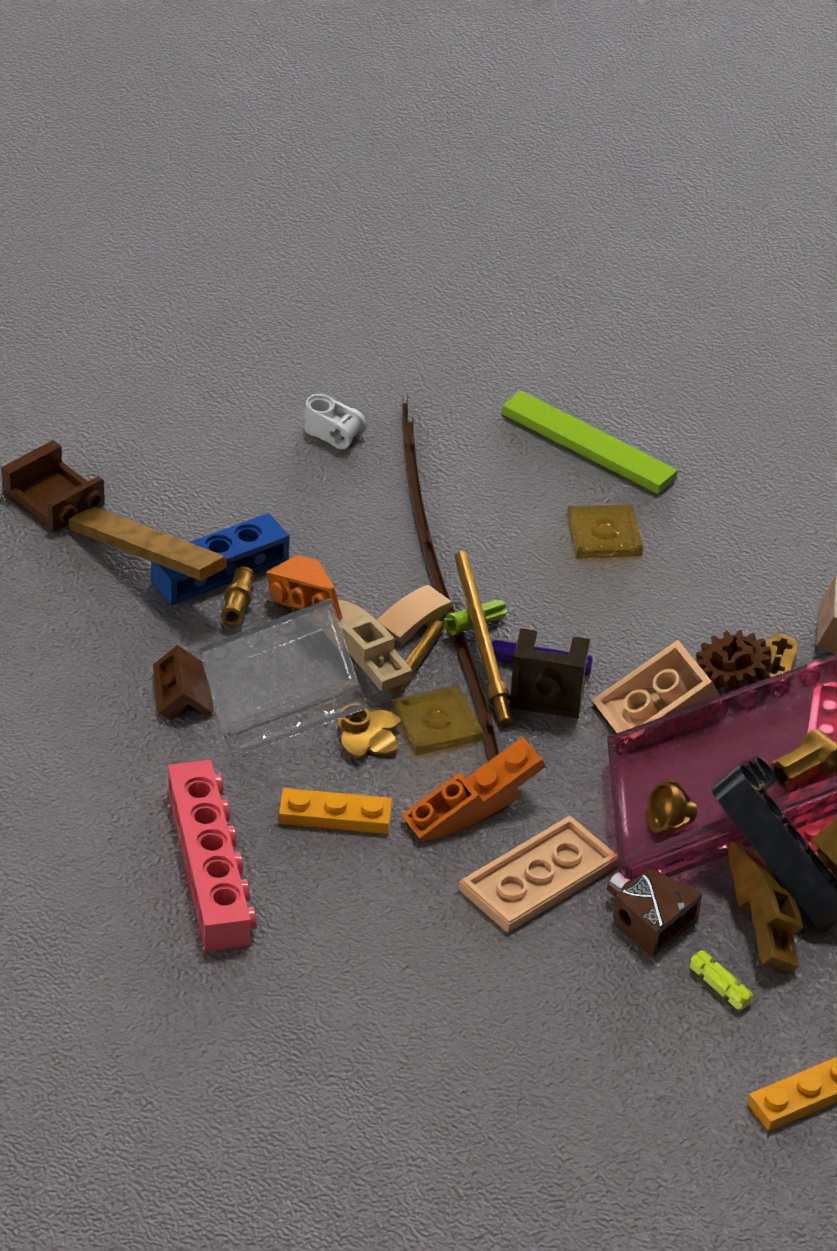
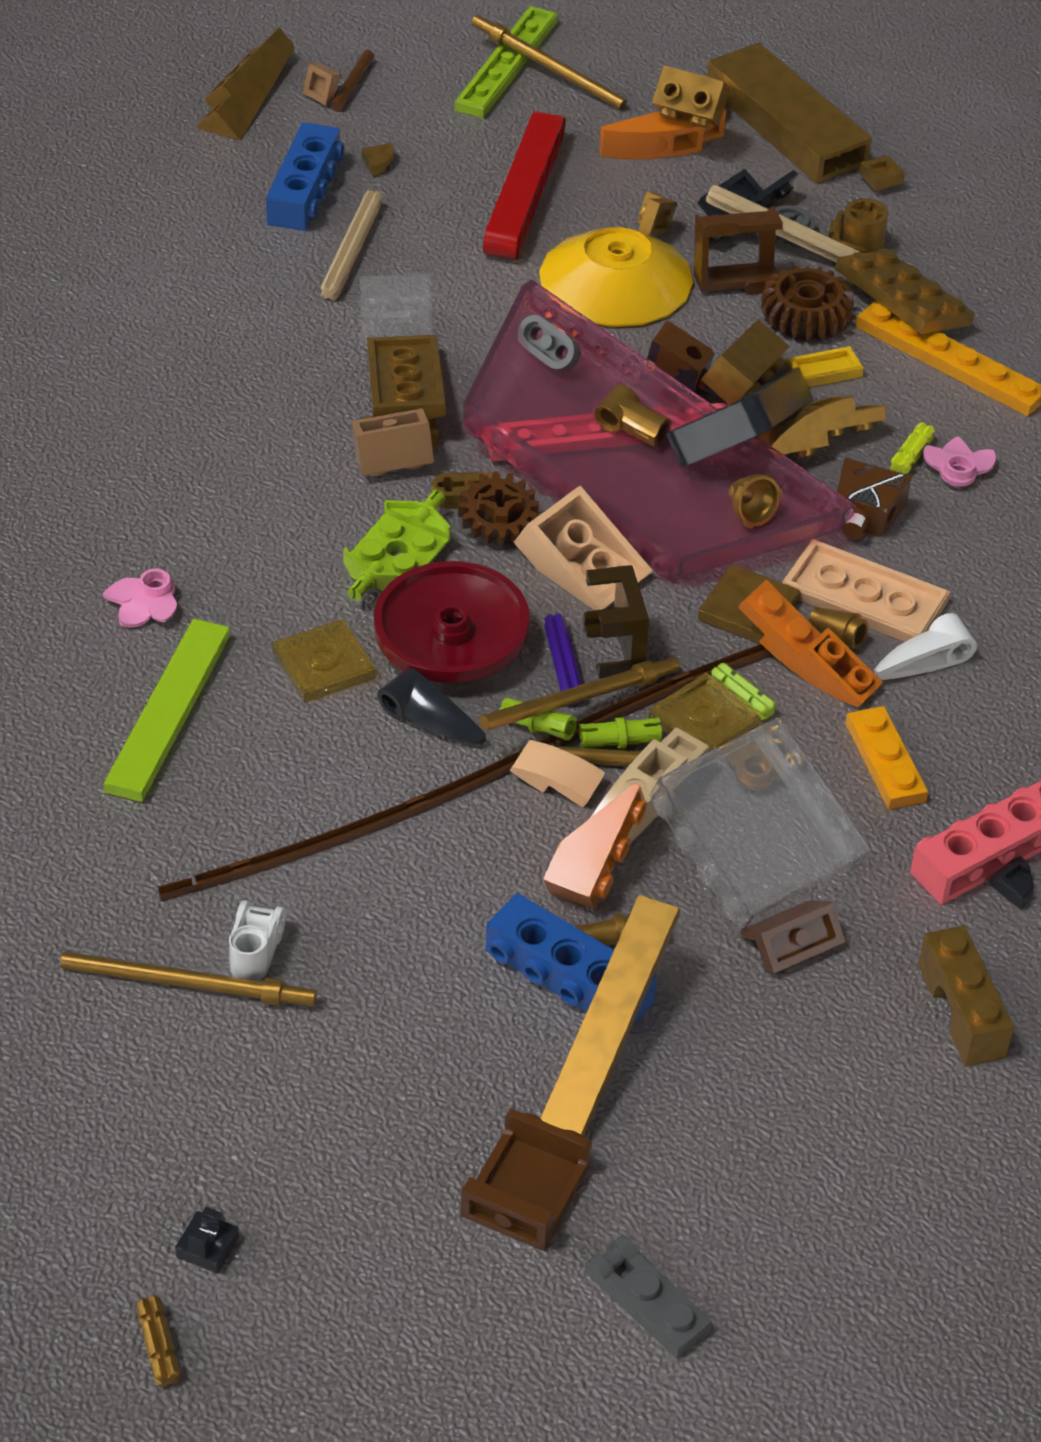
camera: 110 degrees left, 5 degrees up
(45, 319) = (158, 1341): none -> pearl gold axle
(88, 743) = (978, 1017): none -> pearl gold arch
(102, 352) = (207, 1240): none -> black tile
(159, 837) = (1014, 882): none -> black tile
(287, 421) = (270, 990): none -> pearl gold bar
(437, 659) = (620, 733): none -> lime pin
(442, 879) = (940, 647): none -> white piece
(452, 749) = (744, 690): none -> lime axle
(495, 831) = (845, 625): none -> pearl gold cone
(530, 561) = (426, 705): none -> black piece
(560, 791) = (723, 602): none -> pearl gold tile
(600, 590) = (451, 621): none -> dark red dish
(689, 1008) = (958, 463): none -> bright pink plate
(698, 580) = (404, 528): none -> lime plate
(720, 458) = (143, 598): none -> bright pink plate

